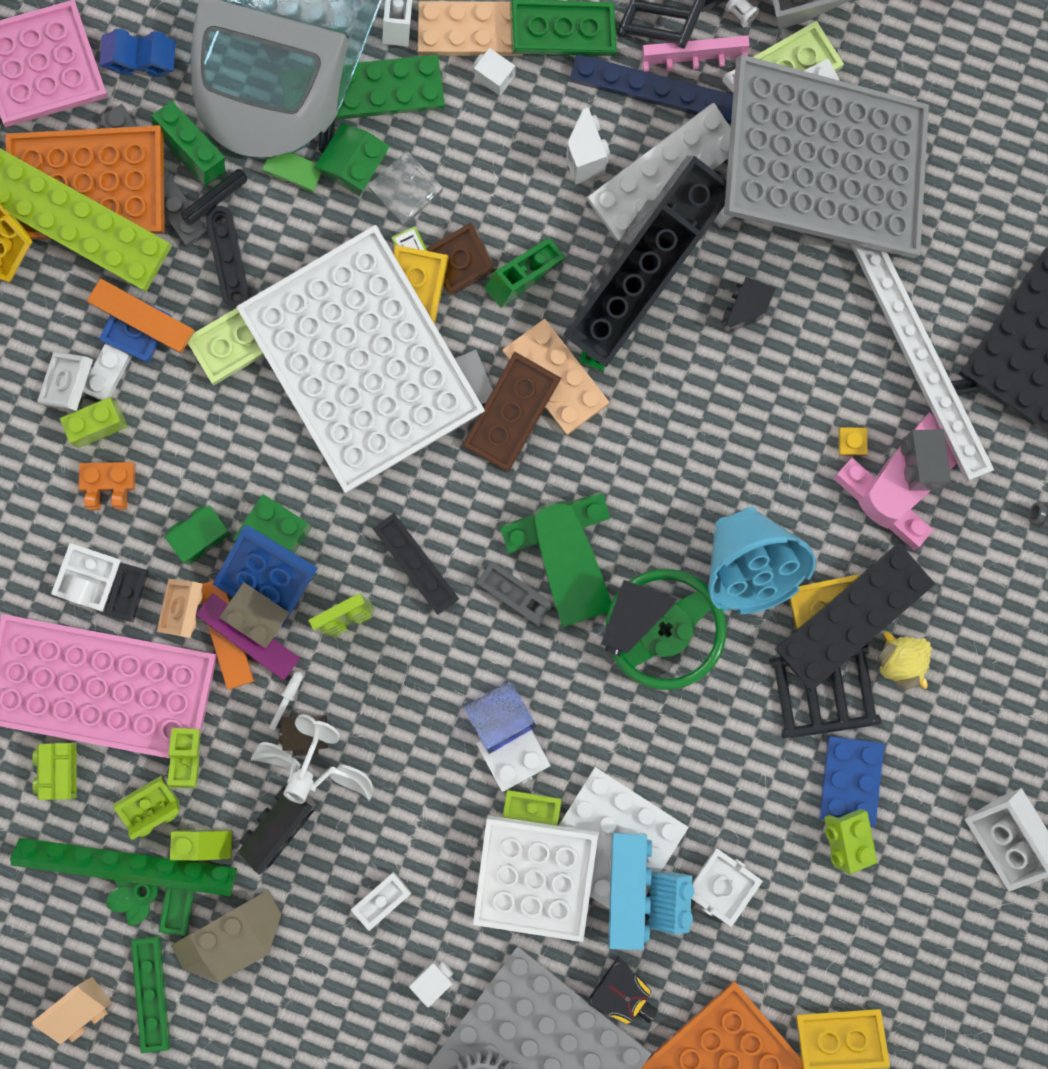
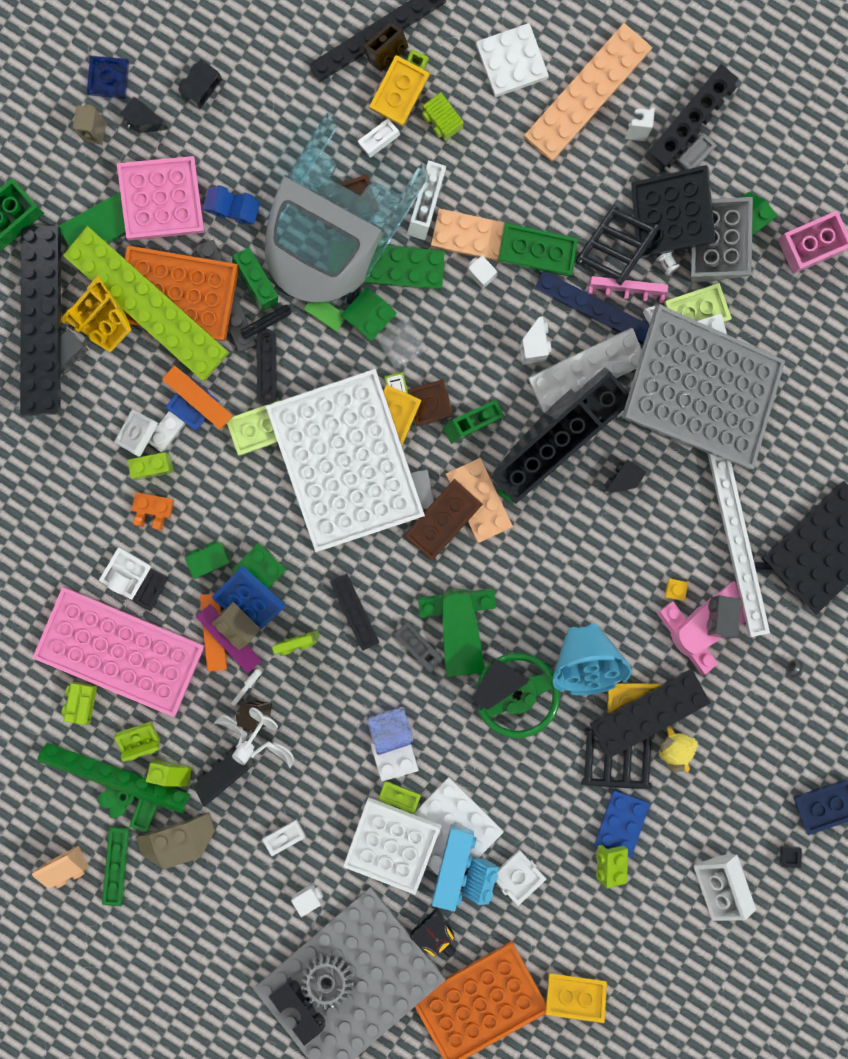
camera: 10 degrees right, 5 degrees up
(180, 608) = (185, 609): light nougat plate -> none
(184, 758) = (168, 713): lime slope -> none

